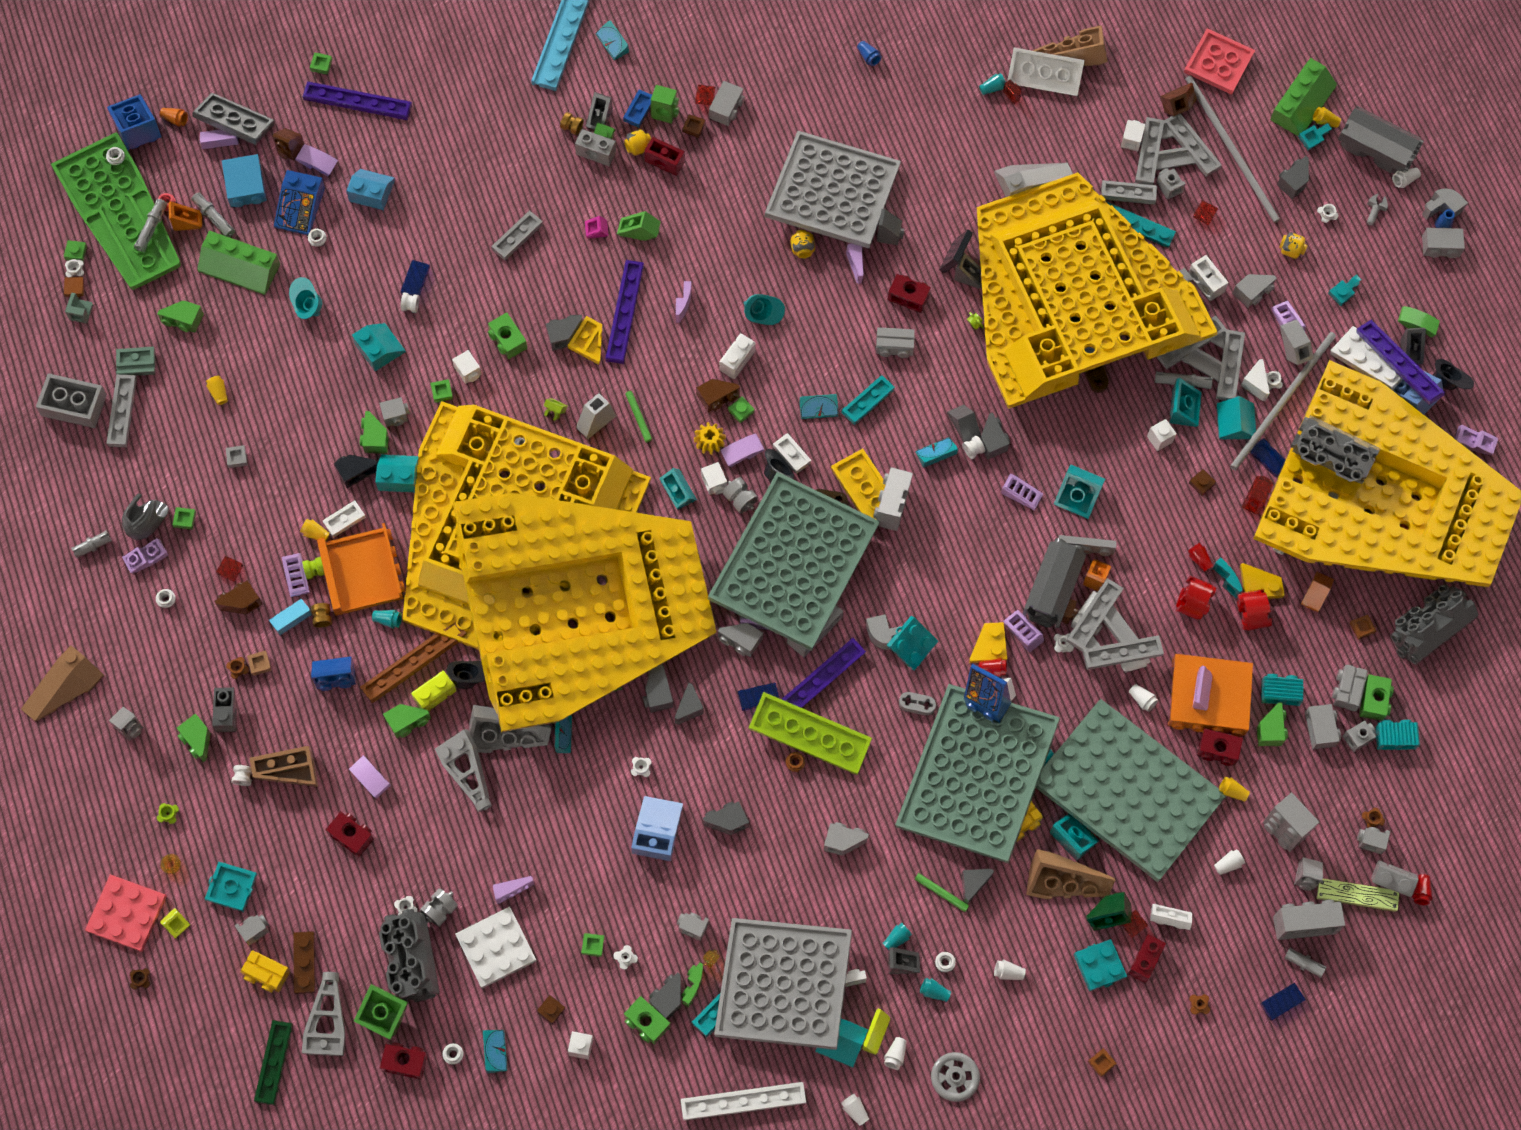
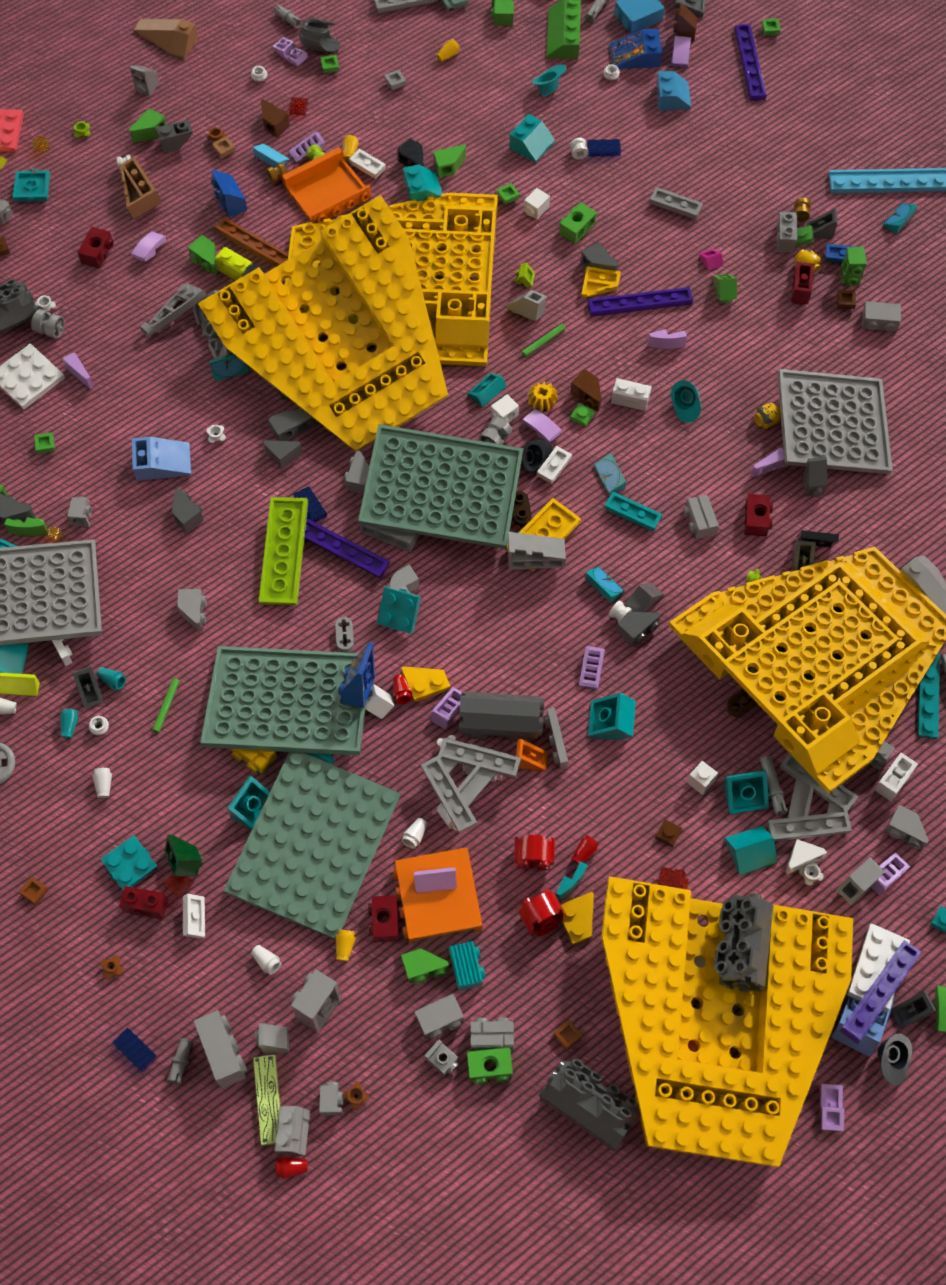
camera: 75 degrees right, 5 degrees down
(389, 618) = (290, 218): teal cone -> none
(394, 412) = (475, 167): light grey brick -> none
(626, 951) = (40, 475): white plate -> none
(705, 94) = (881, 296): clear red plate -> none
(795, 756) = (256, 546): dark orange plate -> none
(974, 881) = (179, 727): dark grey slope -> none
(1058, 876) = (207, 799): medium nougat wedge -> none
(1070, 612) = (481, 740): reddish brown plate -> none
(1268, 457) = (724, 888): clear blue tile -> none
(1283, 400) = (793, 889): light grey piece -> none
(1317, 591) = (590, 977): orange slope -> none
(1397, 735) = (454, 1098): teal brick -> none

